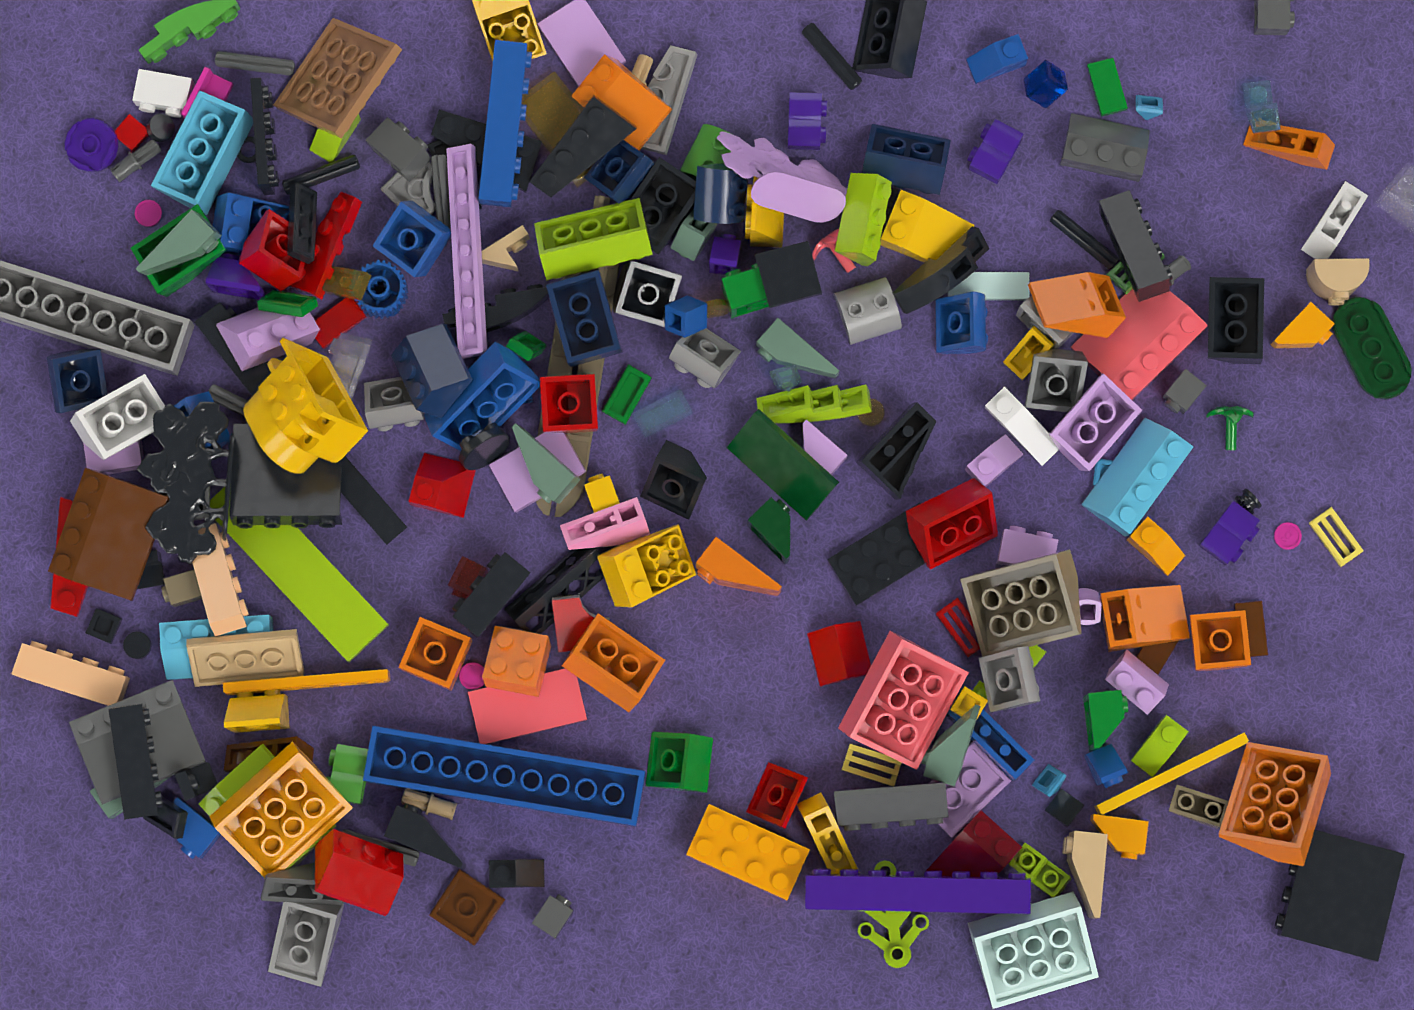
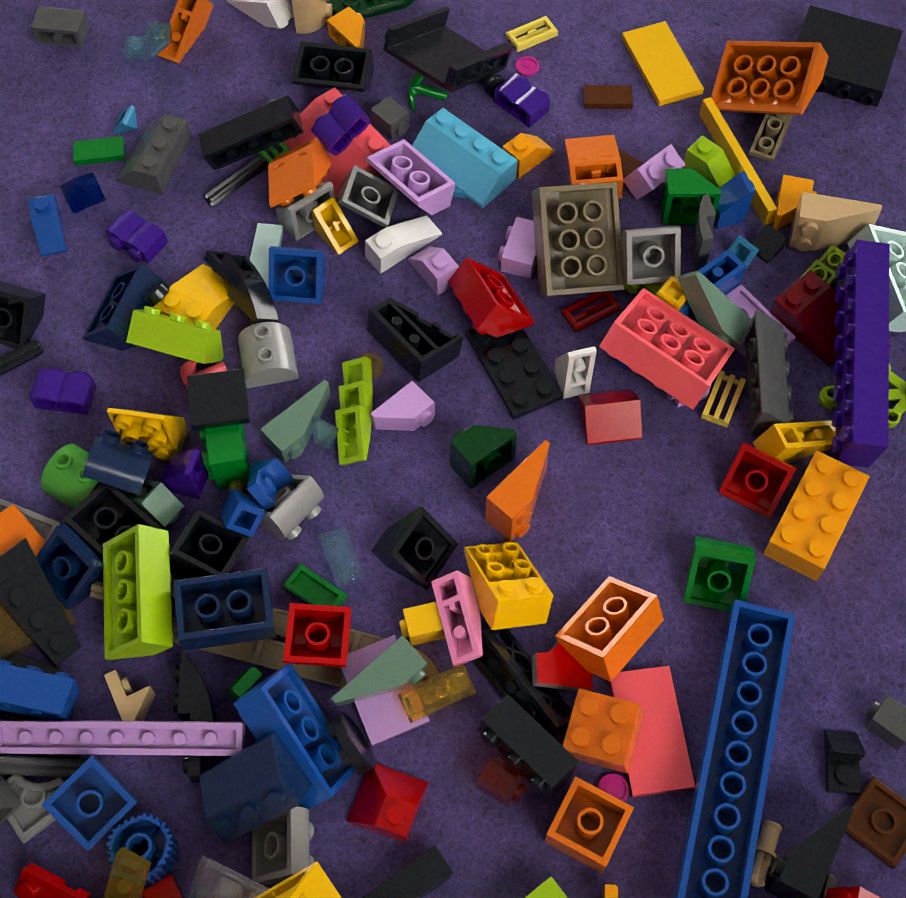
camera: 85 degrees left, 20 degrees down
(534, 514) = (437, 693): none -> clear yellow slope
(719, 330) = (266, 479): none -> blue slope
(782, 464) = (411, 442): dark green tile -> none
(796, 190) = (127, 385): lavender plant -> none
(878, 611) = (575, 371): none -> white slope
(916, 189) = (156, 292): none -> black tile
(1066, 734) = (702, 235): none -> dark grey slope
(1145, 340) = (340, 124): none -> dark purple brick
(1220, 640) = (619, 107): orange brick -> none
(1276, 440) = (442, 53): none -> black panel
(1309, 688) = (662, 63): none -> yellow tile

